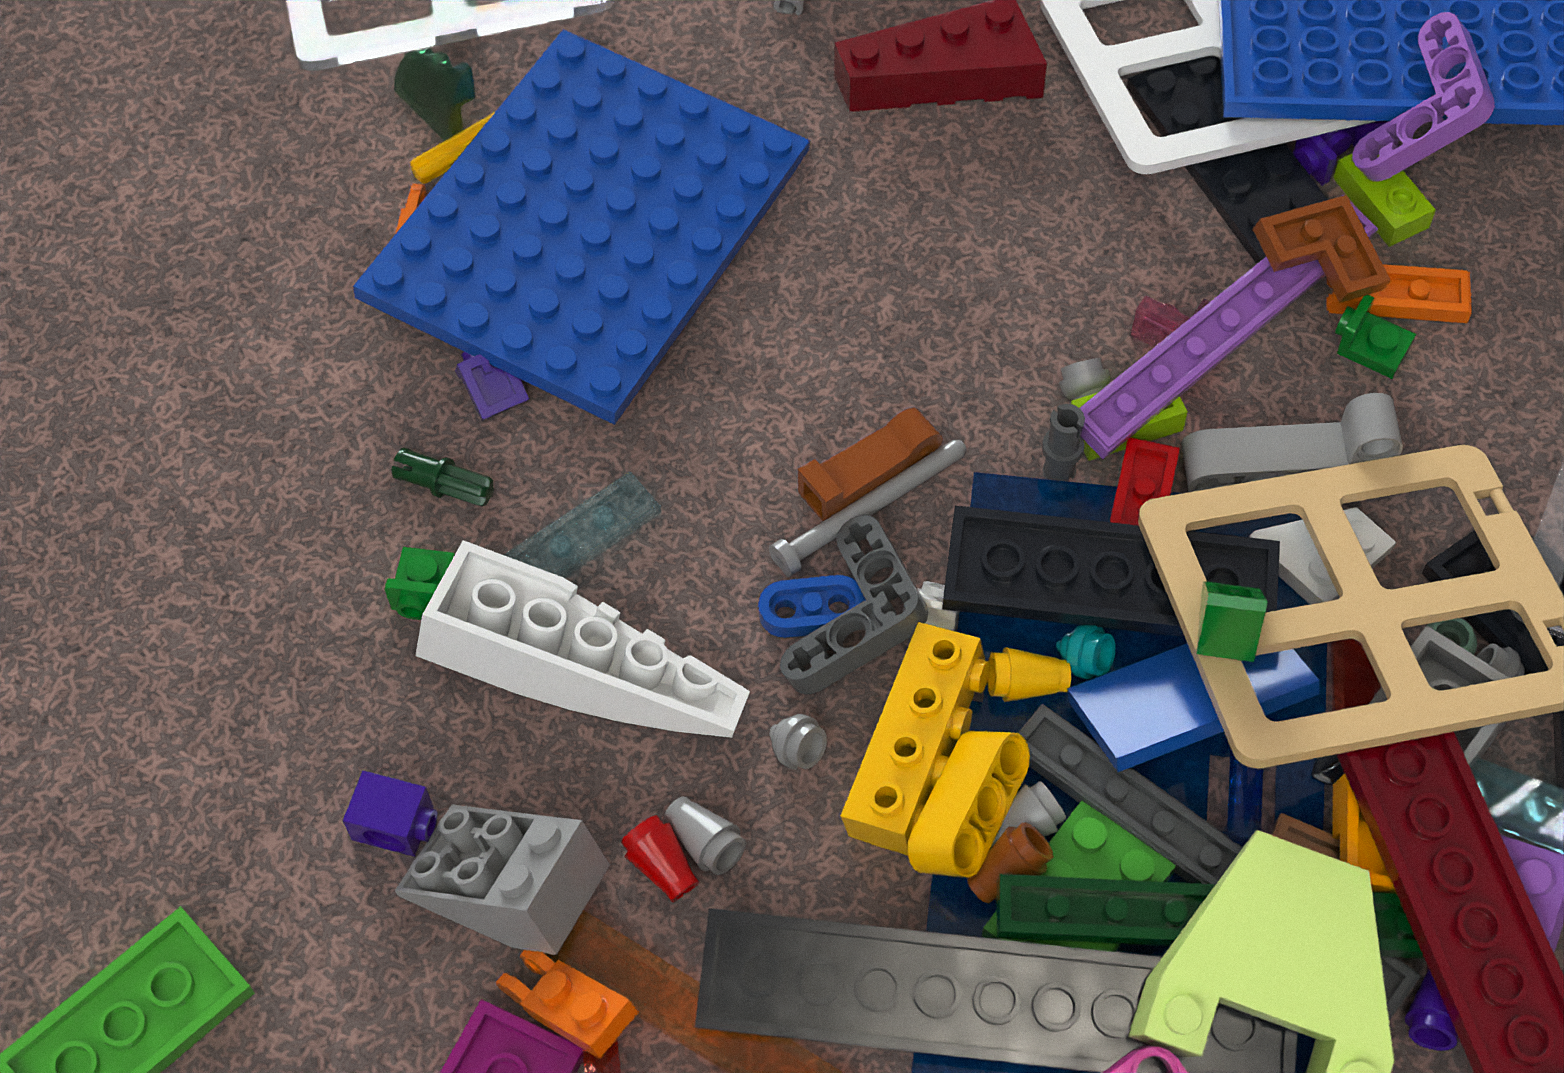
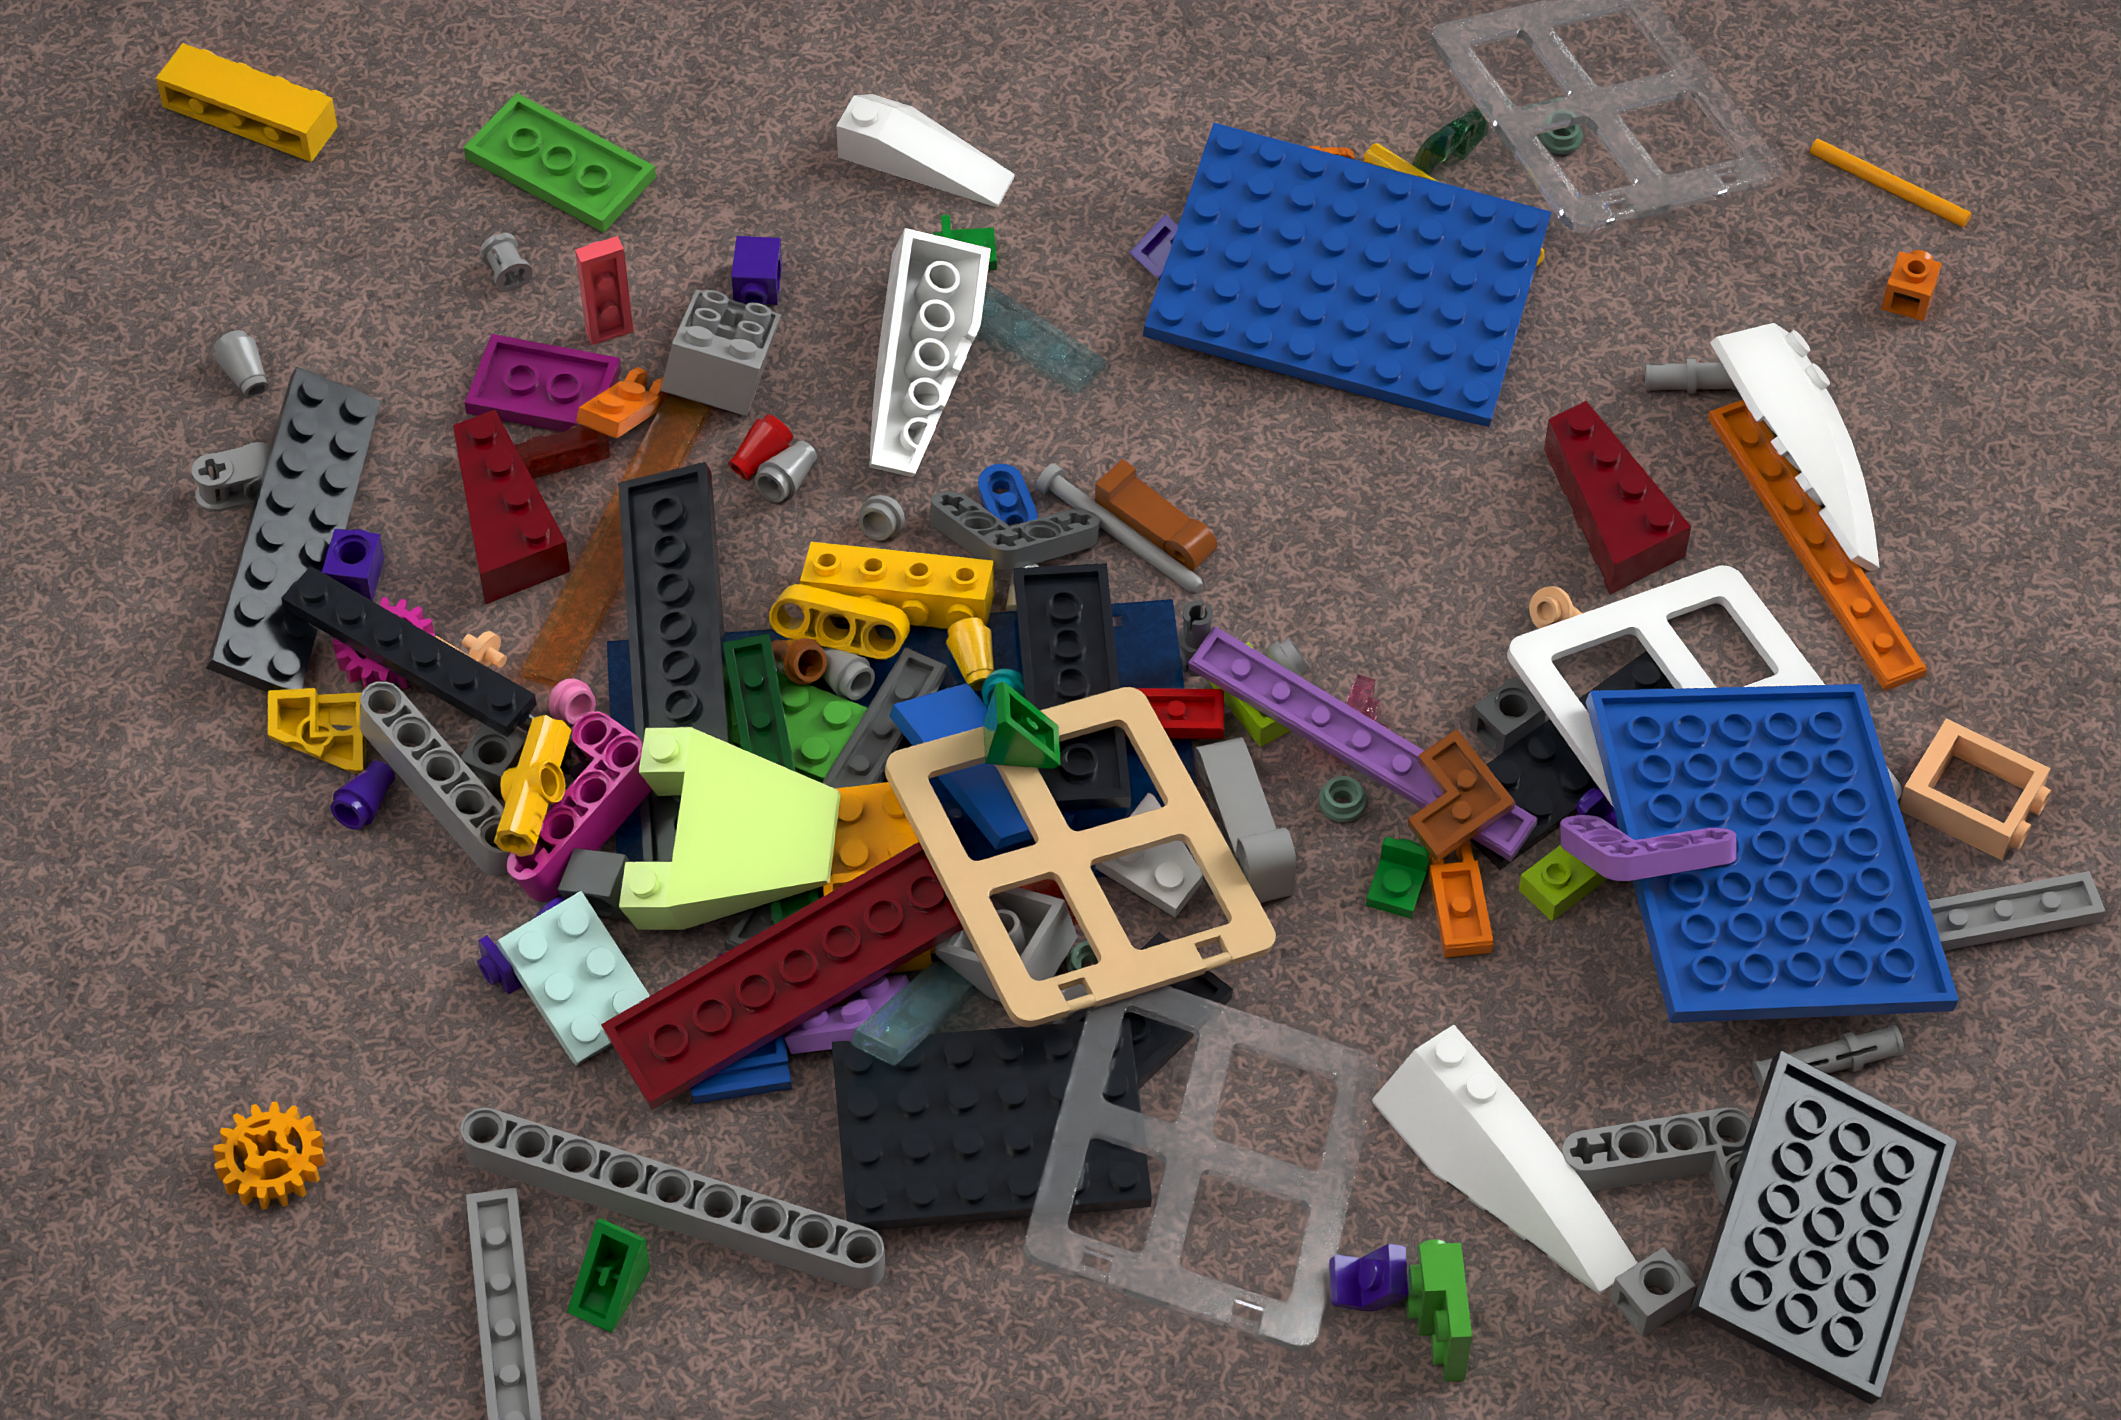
camera: 75 degrees right, 5 degrees down
(244, 614) = (914, 147): none -> white wedge
(398, 984) = (604, 290): none -> coral plate
(443, 477) = (1065, 236): dark green axle -> none
(1061, 141) = (1551, 606): none -> light nougat plate
(1195, 202) = (1491, 718): none -> dark grey brick
(1270, 356) = (1342, 787): none -> sand green plate
(1282, 800) = (869, 828): none -> light orange plate

